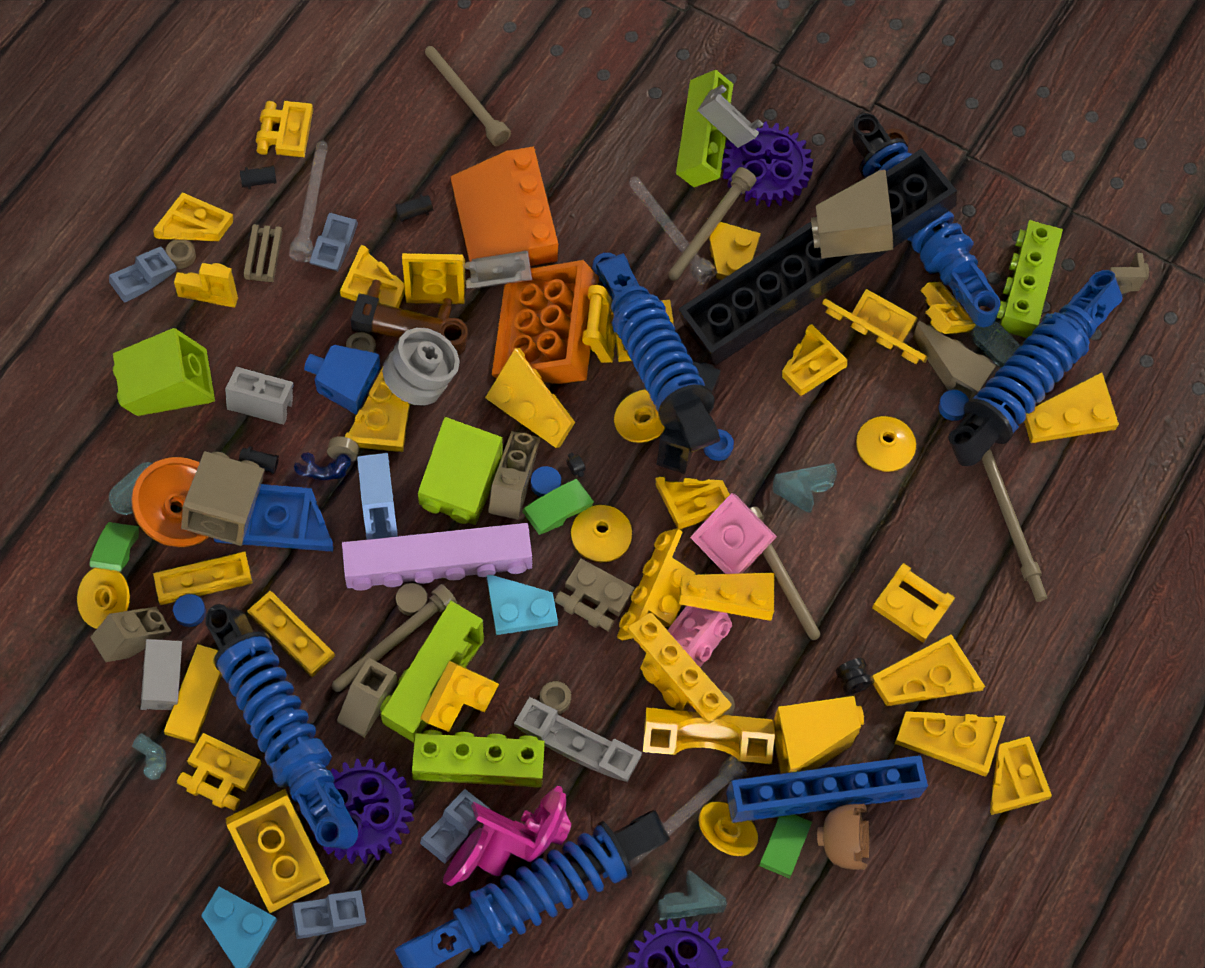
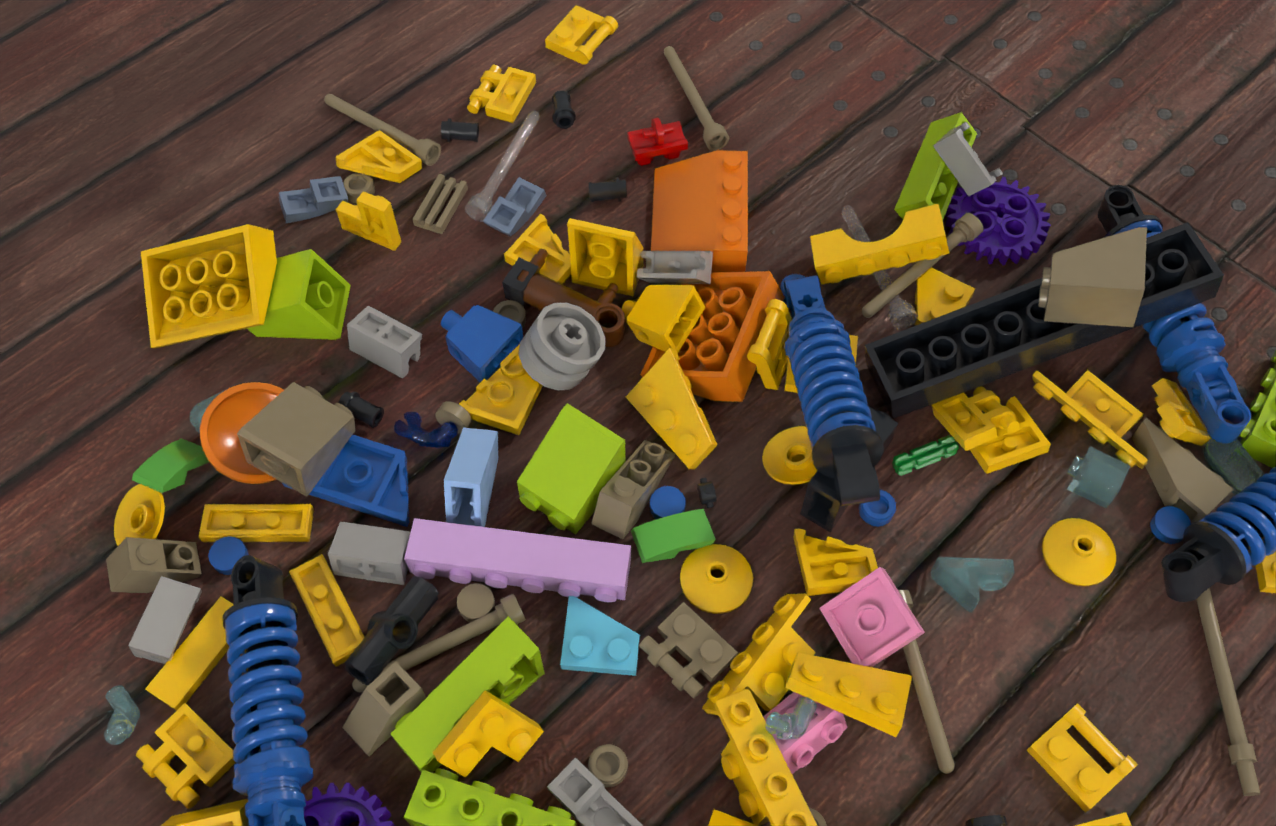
camera: 20 degrees right, 5 degrees down
(86, 381) = (208, 284): none -> yellow slope
(232, 203) = (425, 149): none -> dark tan piece
(312, 579) = (369, 553): none -> light grey hinge
(333, 47) = (575, 29): none -> yellow plate
(350, 139) = (563, 113): none -> black pin
(352, 636) = (391, 630): none -> black piece
(447, 150) = (656, 141): none -> red hips
(499, 318) = (664, 315): none -> yellow torso
(690, 630) = (792, 724): none -> clear light blue arm
(703, 201) = (916, 239): none -> yellow arch
(748, 391) = (925, 455): none -> green axle
(774, 354) = (966, 421): none -> yellow plate
(889, 378) = (1097, 476): none -> clear light blue brick

